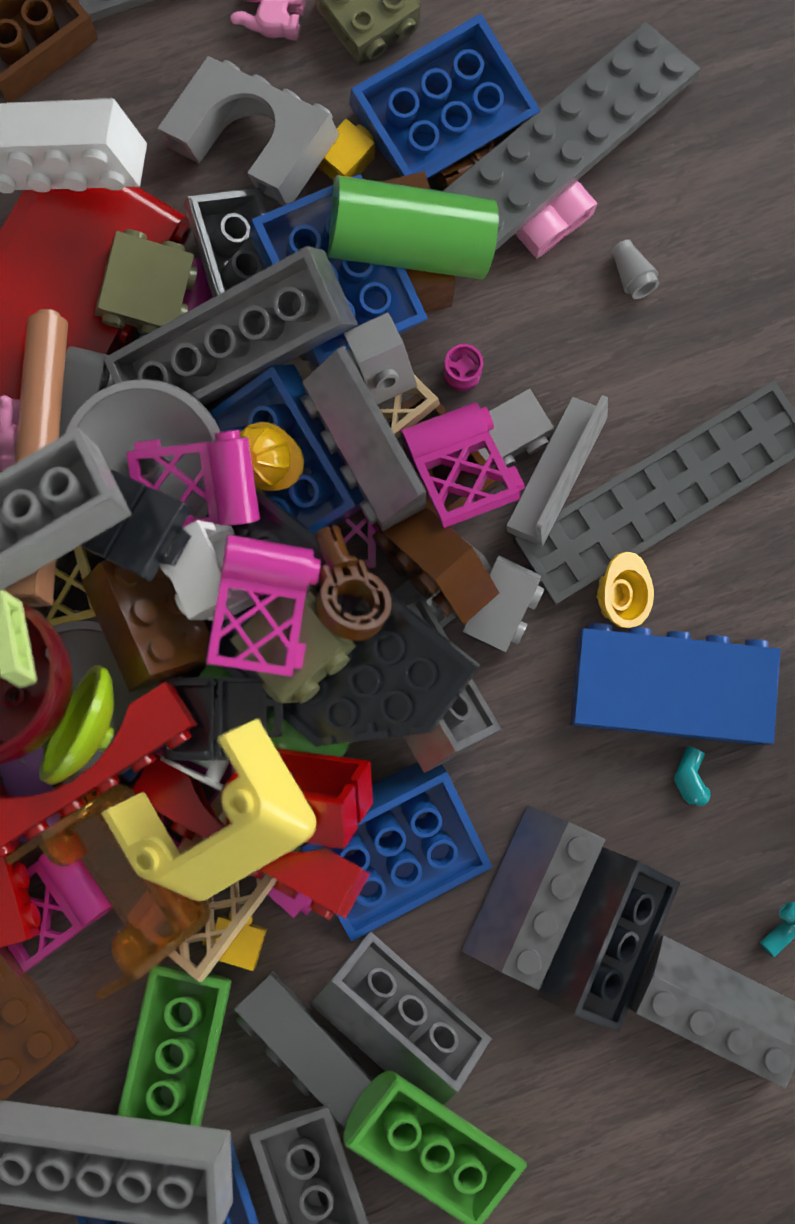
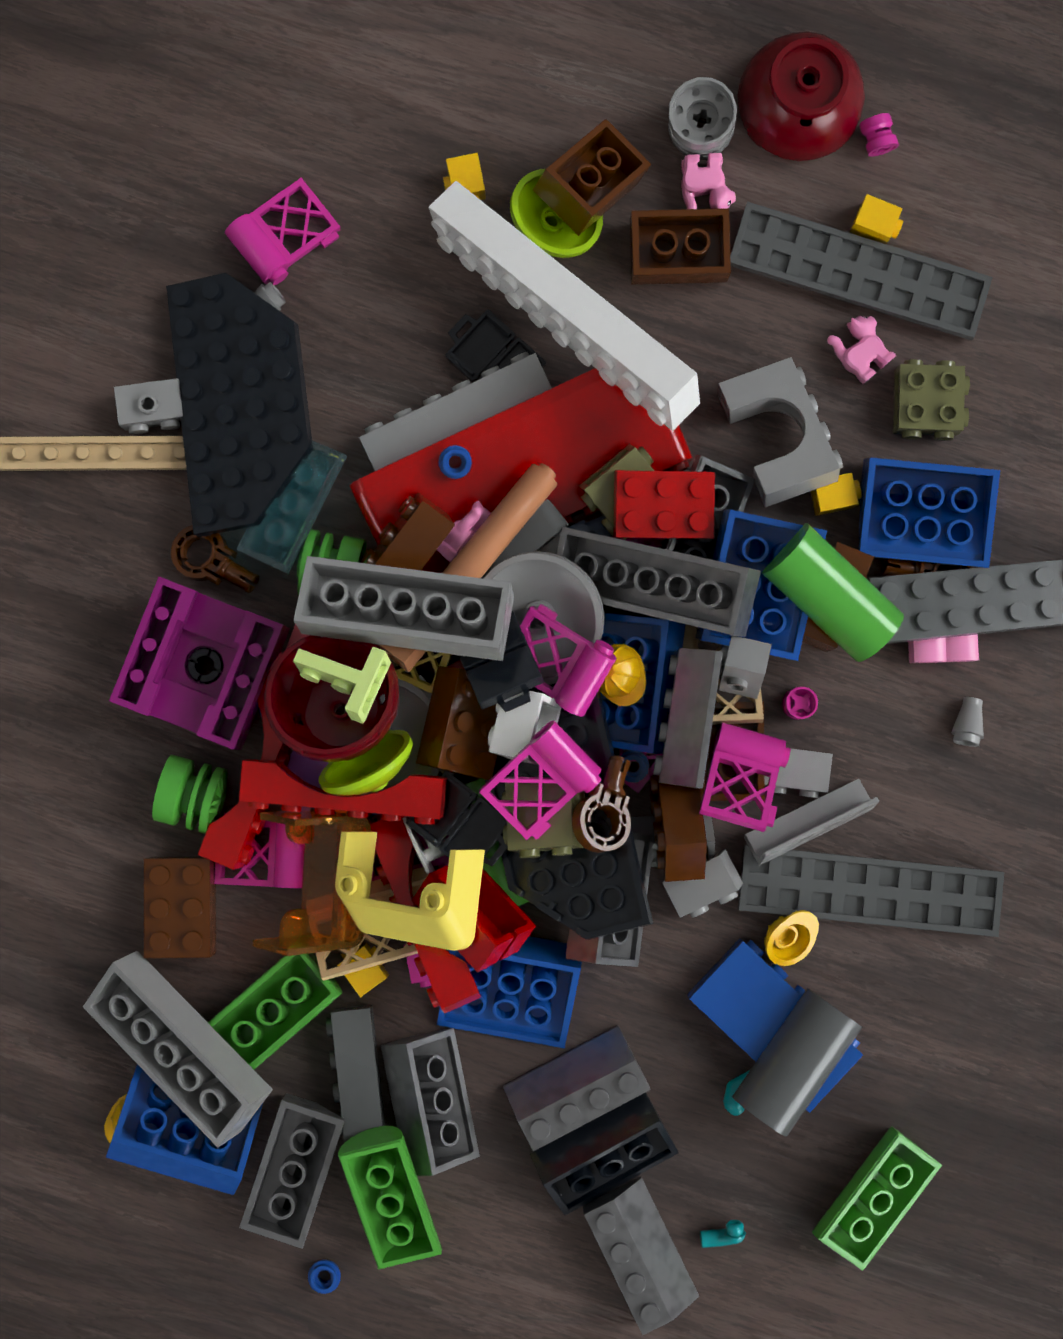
camera: 40 degrees right, 5 degrees up
(186, 264) = (664, 504): none -> red plate
(363, 540) = (643, 770): none -> blue plate
(724, 701) = (796, 1062): none -> dark grey brick

